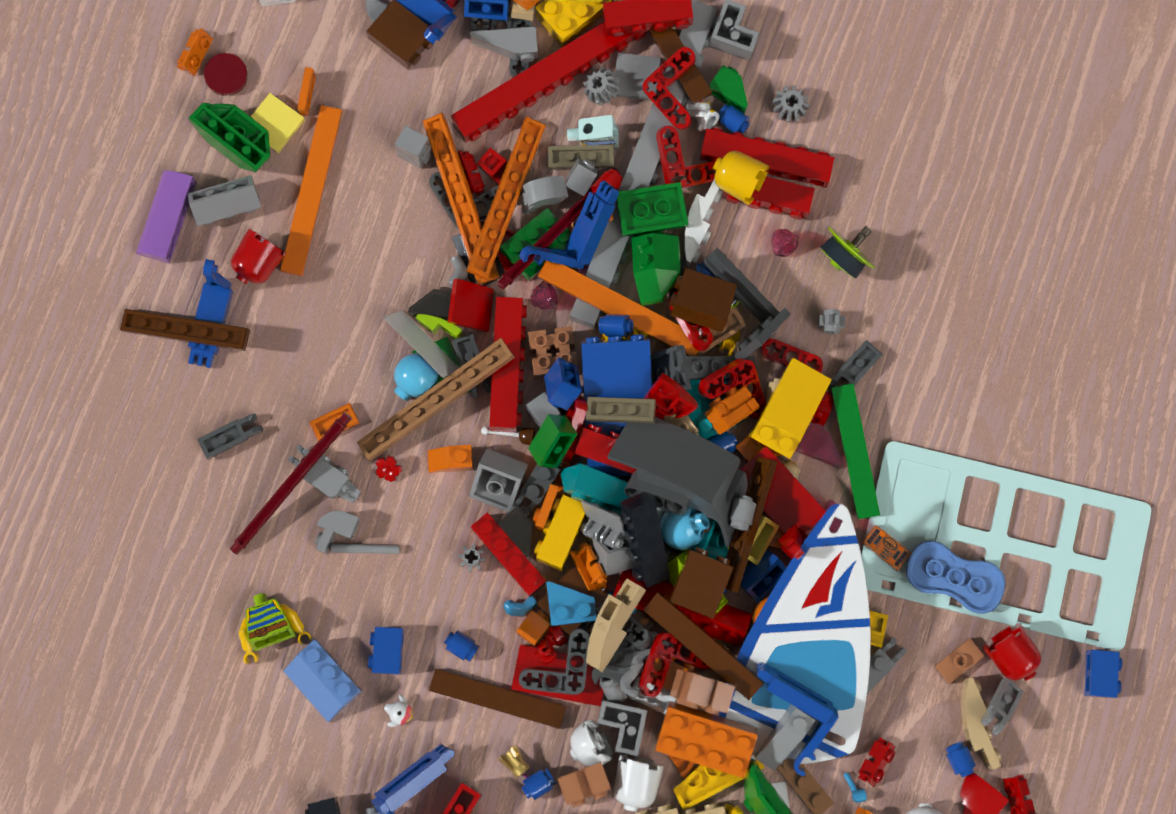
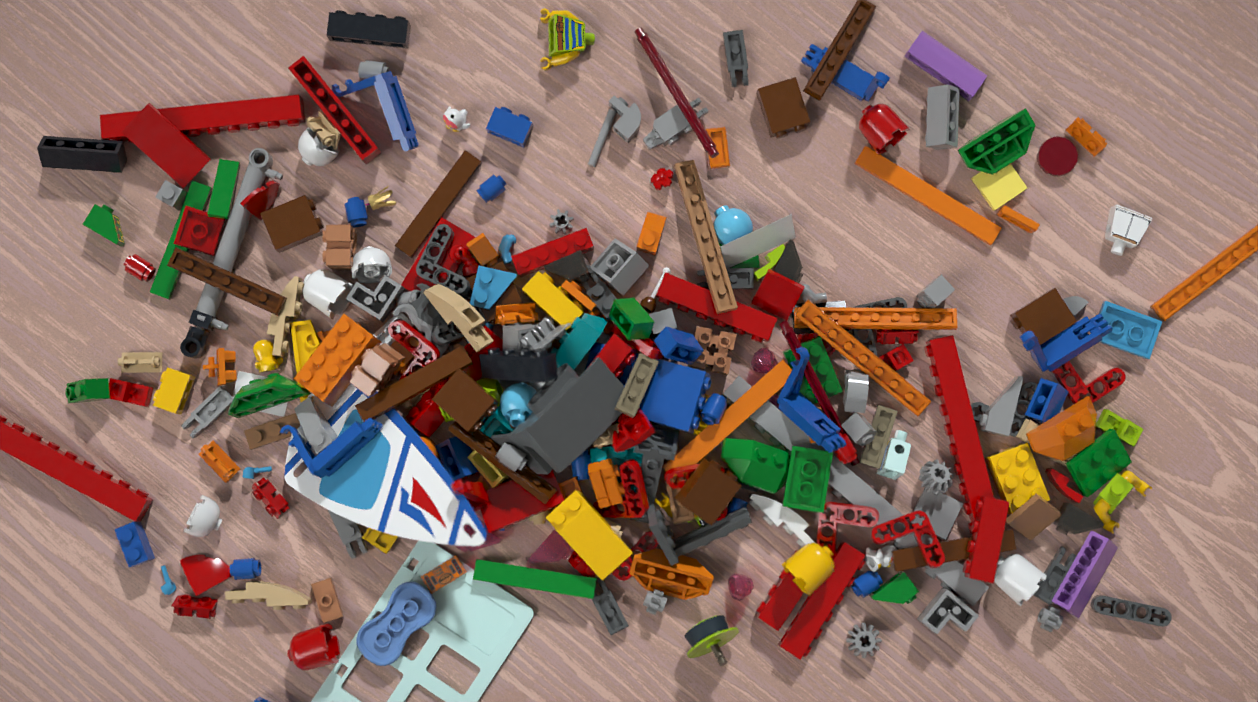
camera: 110 degrees right, 5 degrees up
(269, 367) = (783, 108): none -> reddish brown brick
(322, 680) = (505, 67): medium blue slope -> none
(800, 330) = (682, 580): none -> orange wedge
(1002, 705) = (274, 620): light grey hinge -> none

